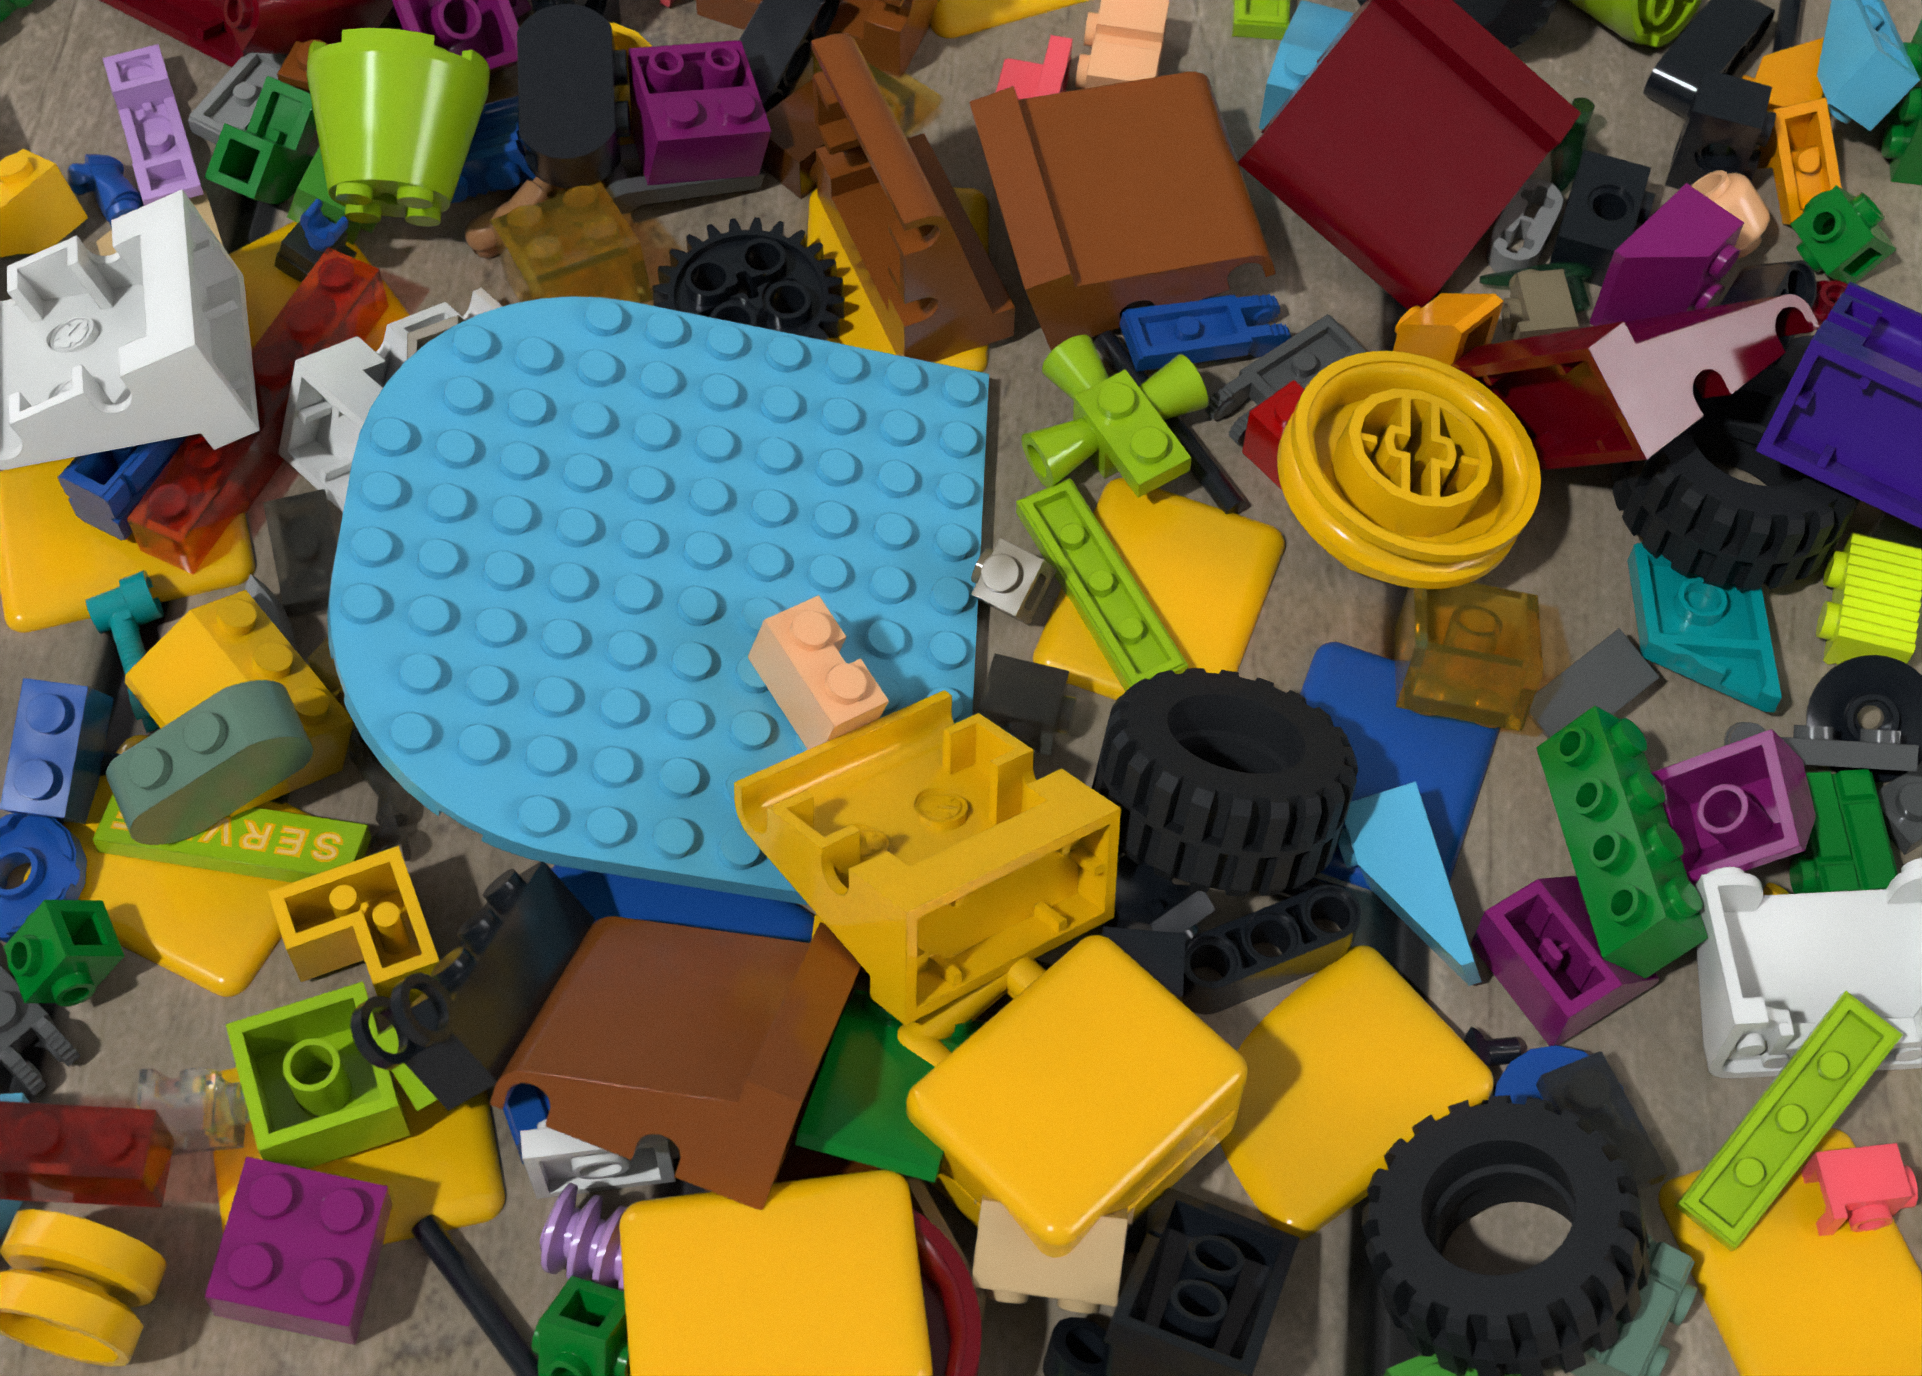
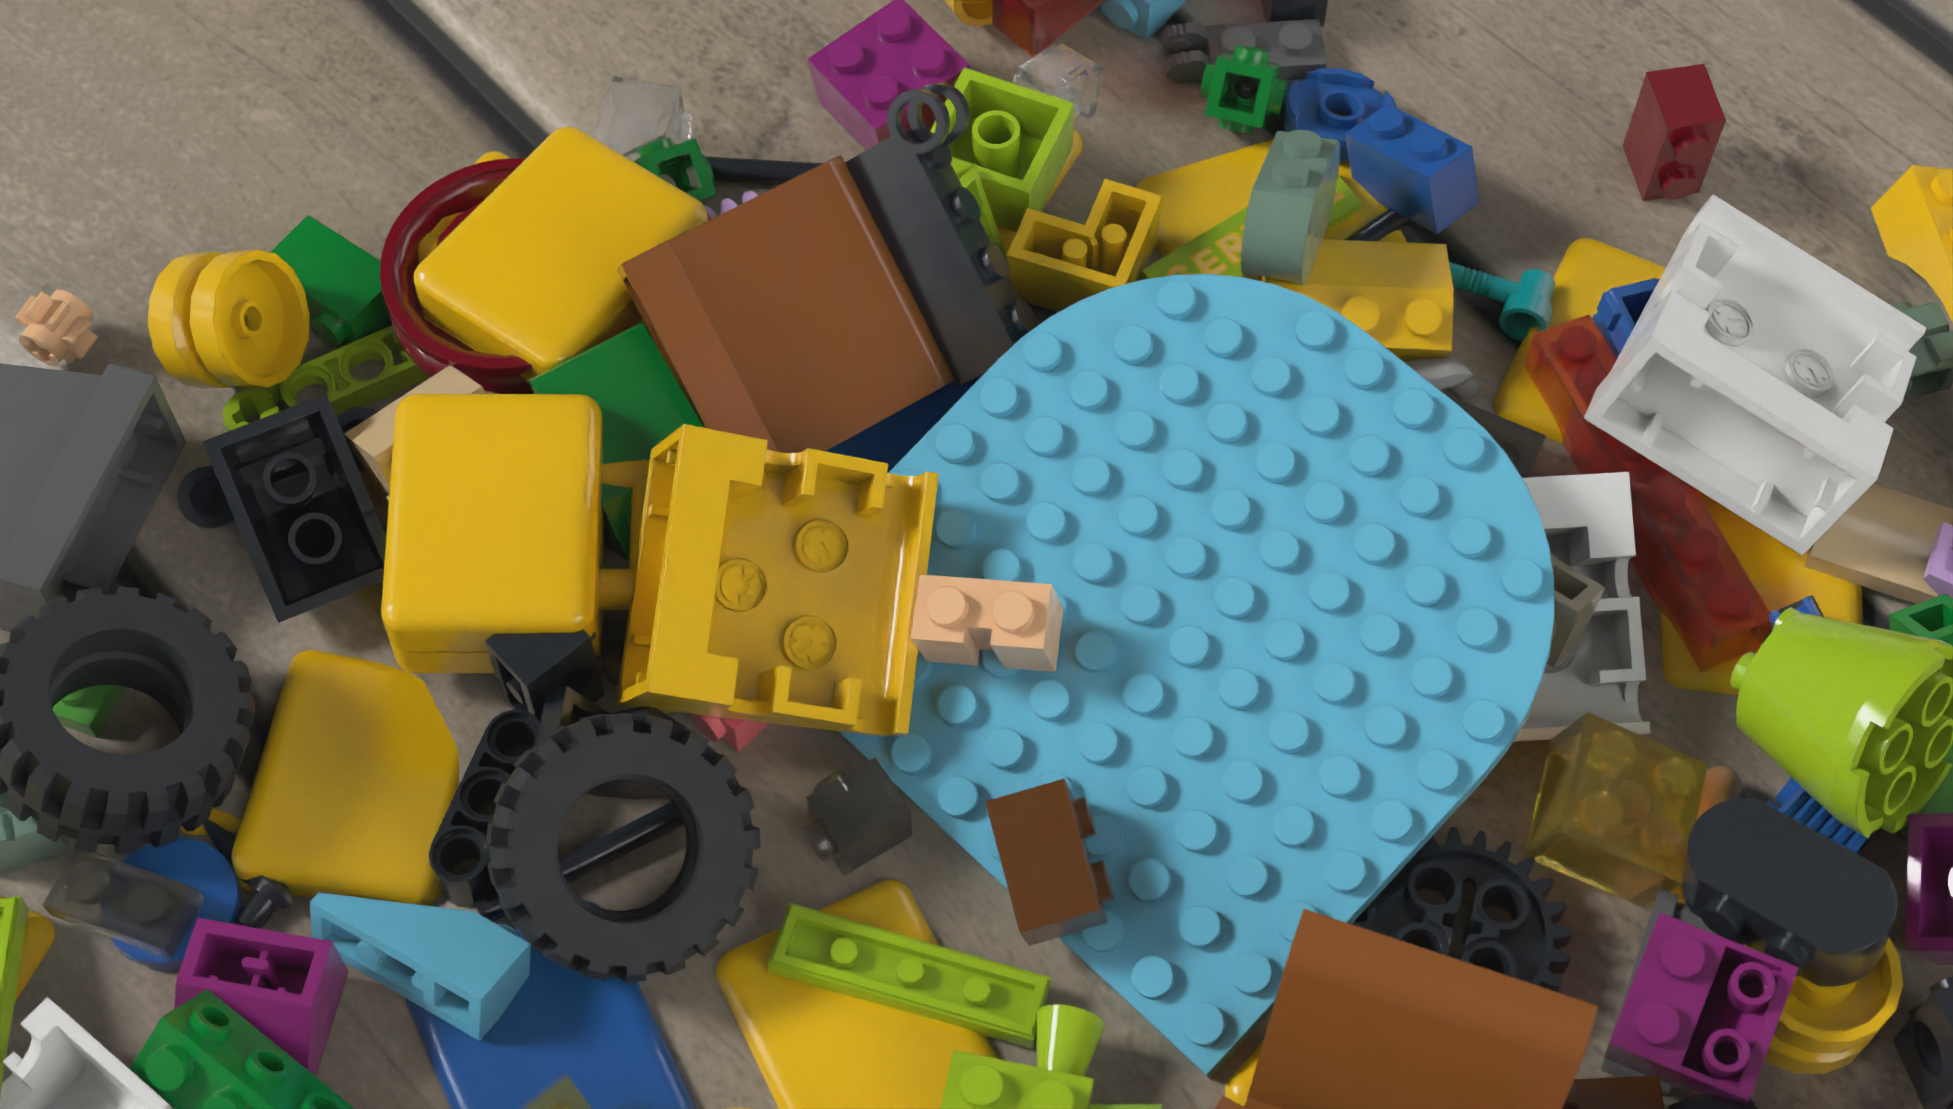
camera: 135 degrees right, 0 degrees up
(949, 530) = (1048, 861): none -> reddish brown brick
(1012, 580) = (971, 892): dark tan brick -> none

